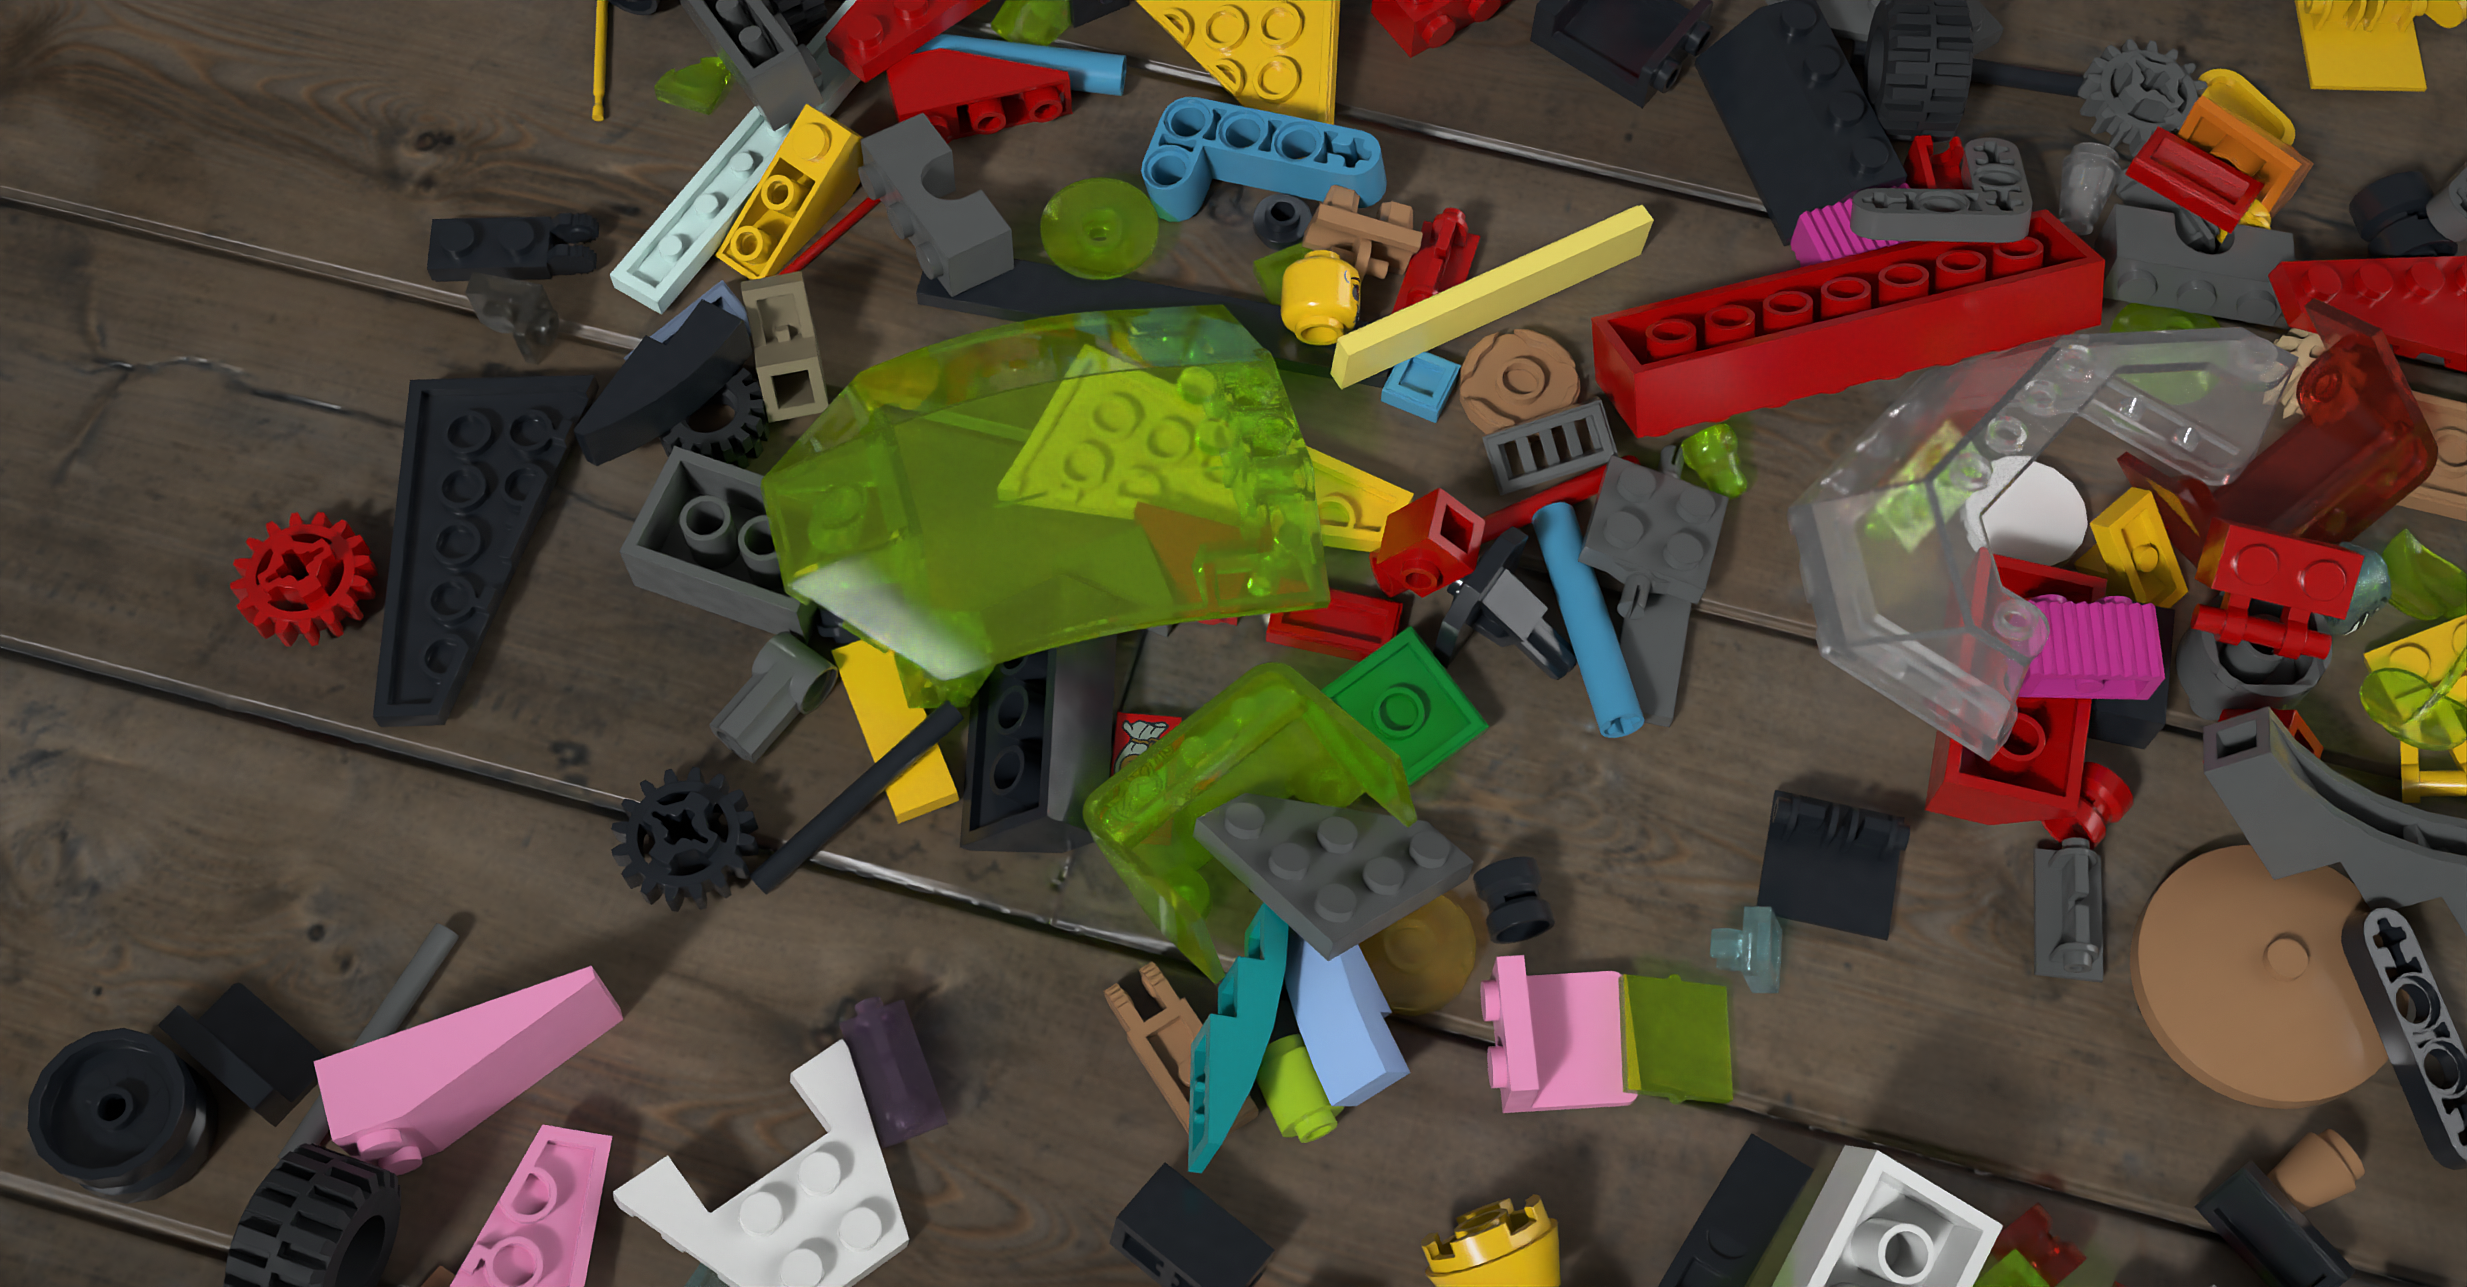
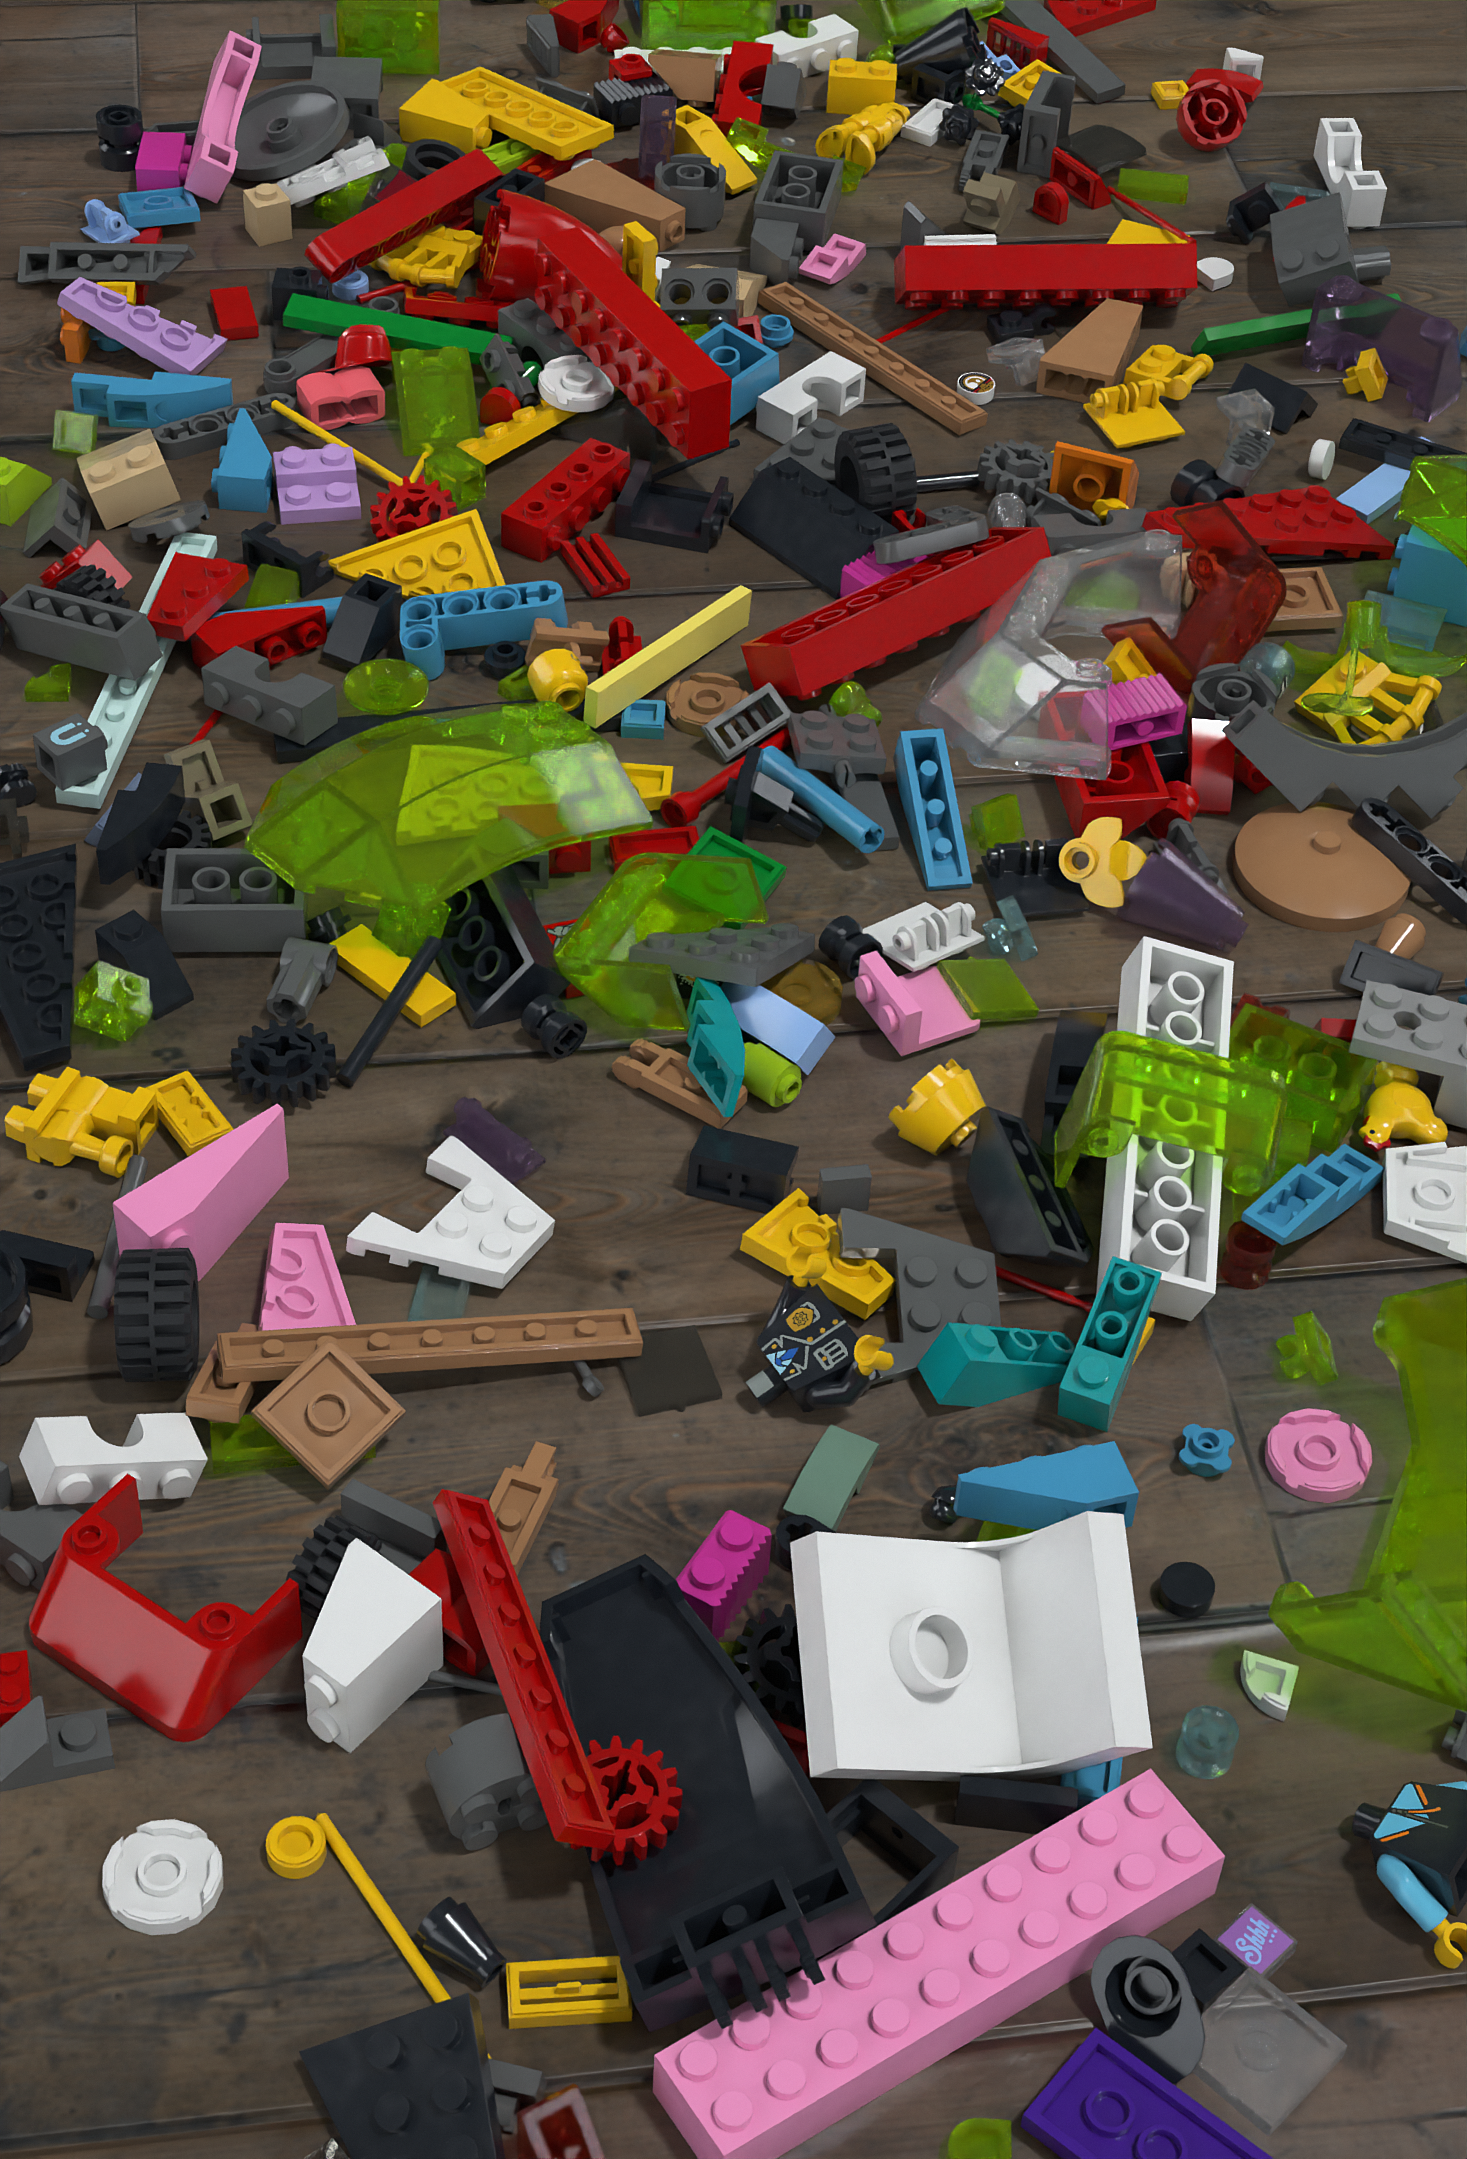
camera: 25 degrees left, 20 degrees down
(388, 832) = (84, 1121): none -> yellow hips
(515, 667) = (112, 1001): none -> clear neon green brick
(536, 880) = (189, 1112): none -> yellow plate
(586, 610) = (142, 950): none -> black slope
(641, 229) = (70, 751): none -> dark grey brick
(795, 196) = (164, 713): yellow slope -> none
(1055, 899) = (550, 1022): none -> black wheel
(1114, 110) = (364, 621): none -> black slope
(1431, 543) = (703, 771): red brick -> none
(1474, 51) = (602, 564): none -> red tile
(1621, 914) = (926, 934): none -> white hinge
(1736, 696) = (932, 808): none -> dark azure slope
(1822, 741) = (997, 821): none -> clear neon green tile
(1937, 890) = (1109, 861): none -> yellow plate
(2019, 992) = (1183, 901): none -> clear purple cone
(2169, 760) = (1210, 765): none -> red slope
(2194, 179) = (1073, 492): red tile -> none
(2278, 570) = (1224, 644): red brick -> none

